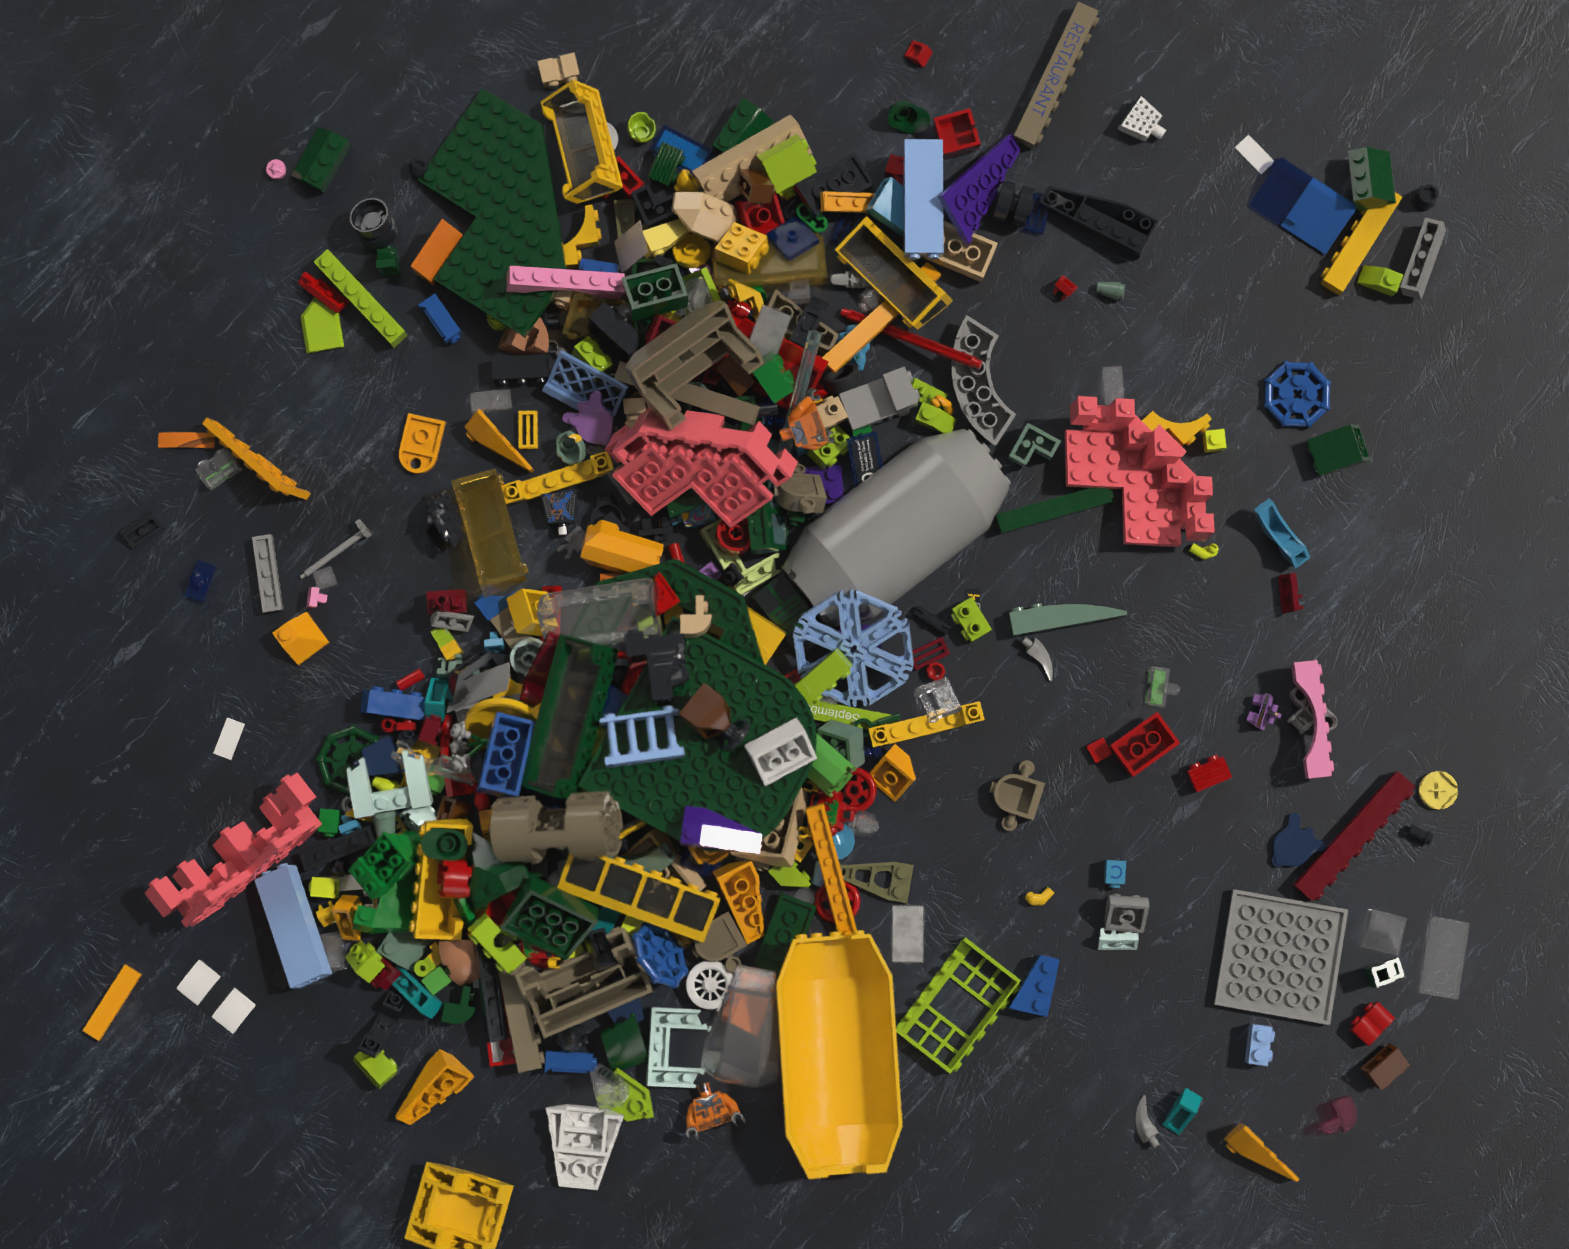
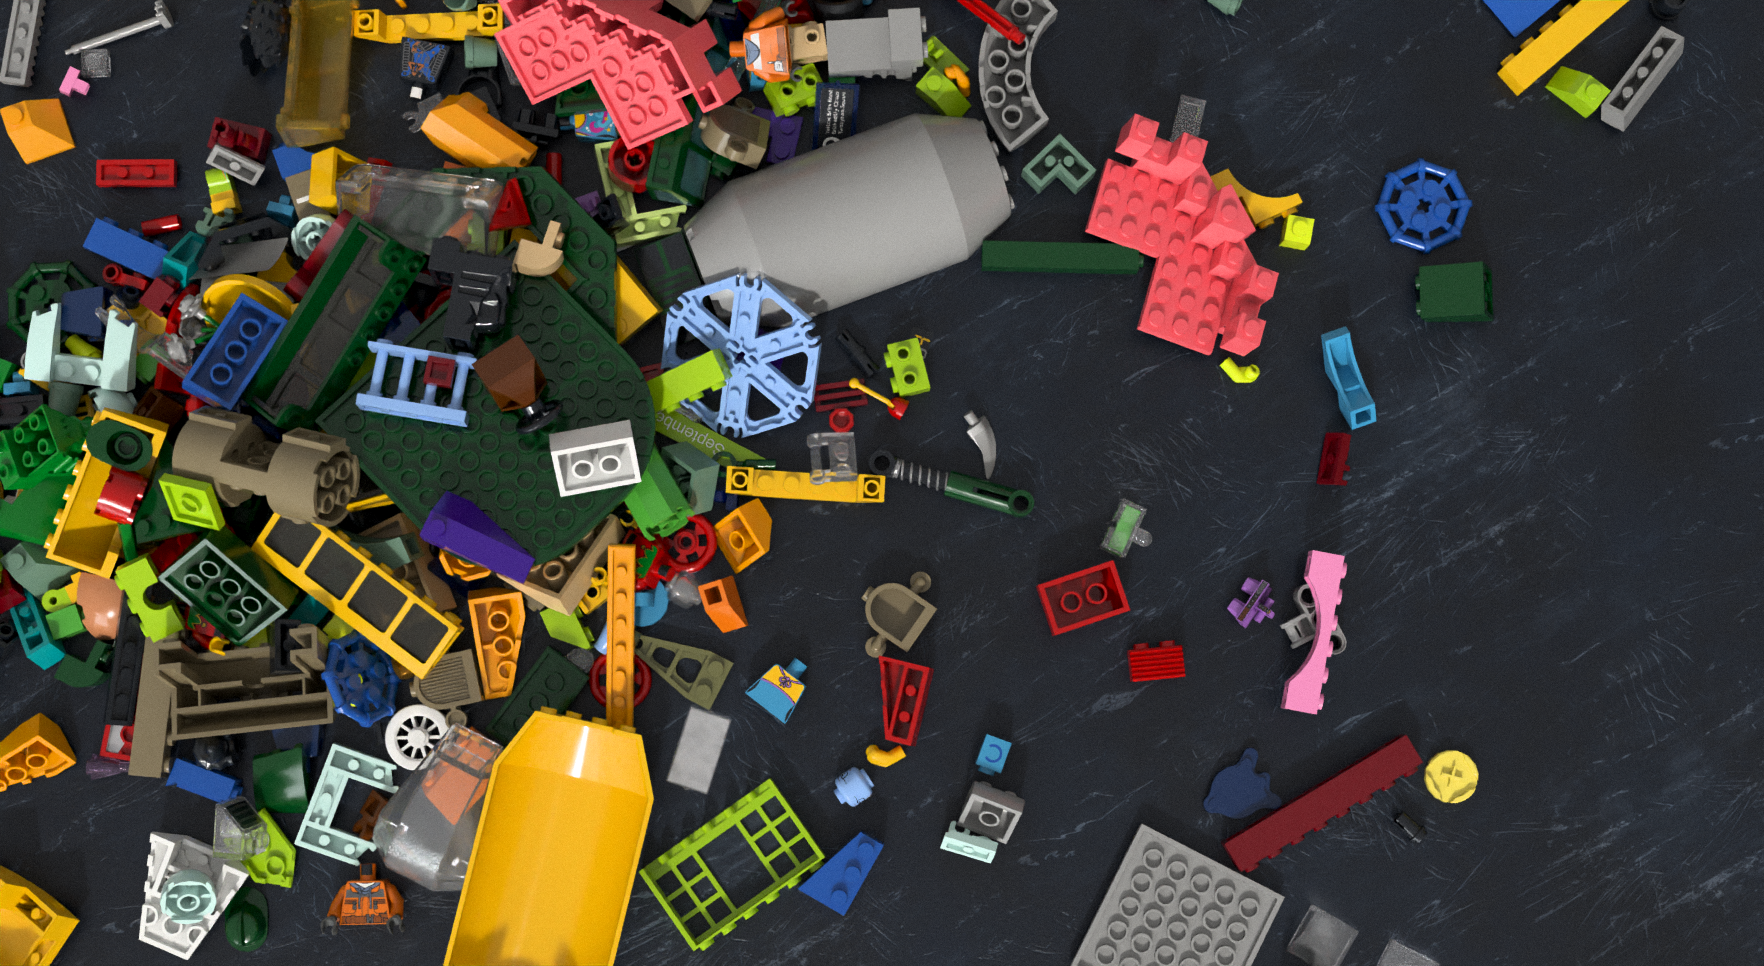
camera: 15 degrees right, 0 degrees up
(380, 648) = (136, 173): none -> red plate
(495, 1073) = (103, 766): none -> clear purple cone
(513, 867) = (192, 501): none -> lime plate
(587, 1143) = (188, 896): none -> light aqua cylinder
(599, 488) = (479, 52): none -> sand green piece
(629, 1150) = (246, 919): none -> dark green piece
(655, 725) = (439, 372): none -> dark red tile
(694, 1046) = (370, 812): none -> reddish brown plate
(894, 825) = (723, 604): none -> orange slope
(952, 873) = (779, 689): none -> dark azure torso
(971, 649) = (895, 406): none -> hinge
(1024, 925) = (853, 786): none -> light blue head
(1030, 692) = (955, 485): none -> piece
(1041, 852) = (904, 698): none -> red wedge
(1051, 617) = (1023, 398): sand green slope -> none
(1099, 750) = (1022, 588): red tile -> none

